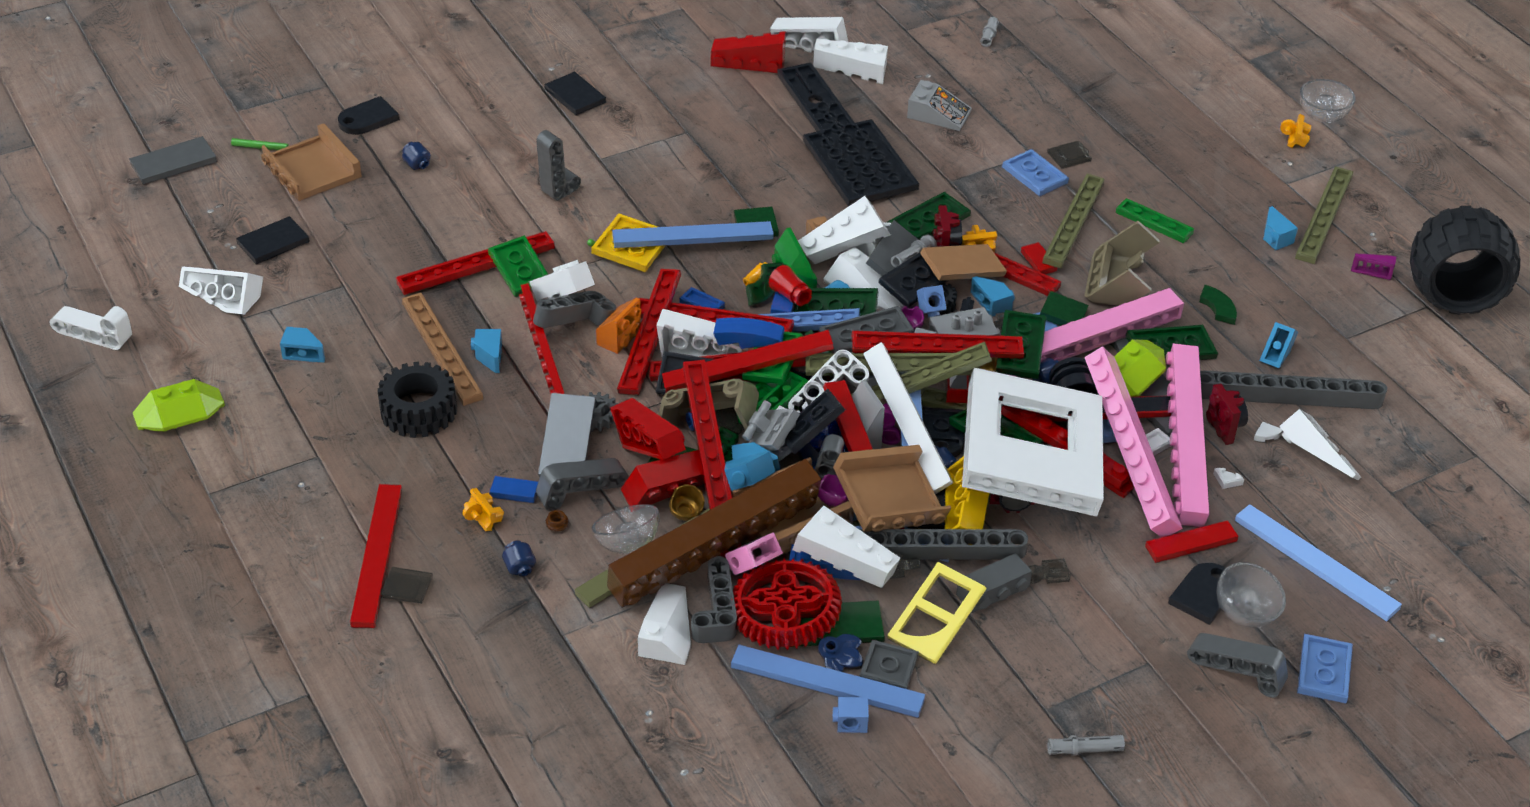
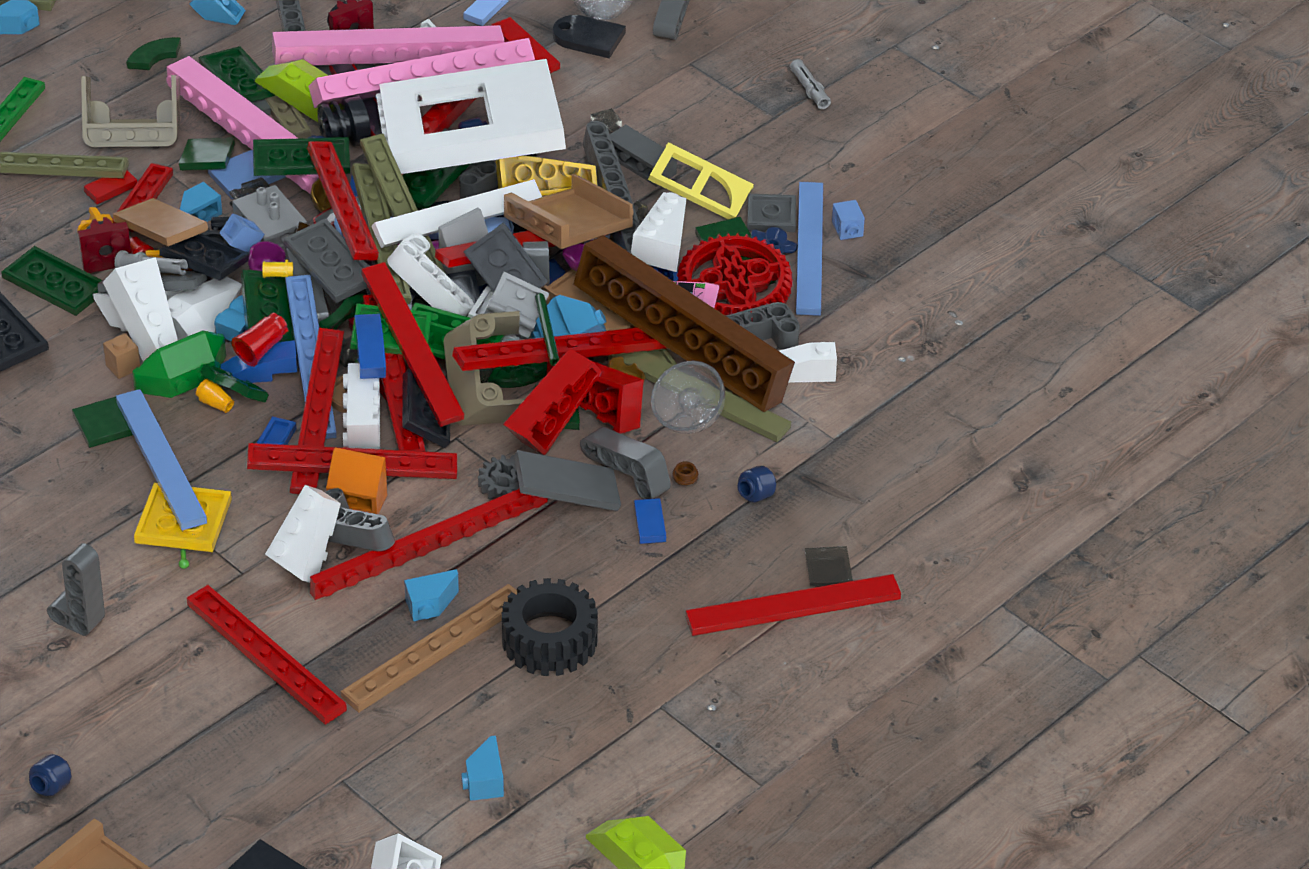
camera: 105 degrees left, 0 degrees up
(481, 509) = (699, 531): light orange hips -> none
(517, 263) = (264, 606): green tile -> none
(725, 433) = (547, 329): none -> dark green piece
(868, 304) = (277, 269): none -> yellow pin

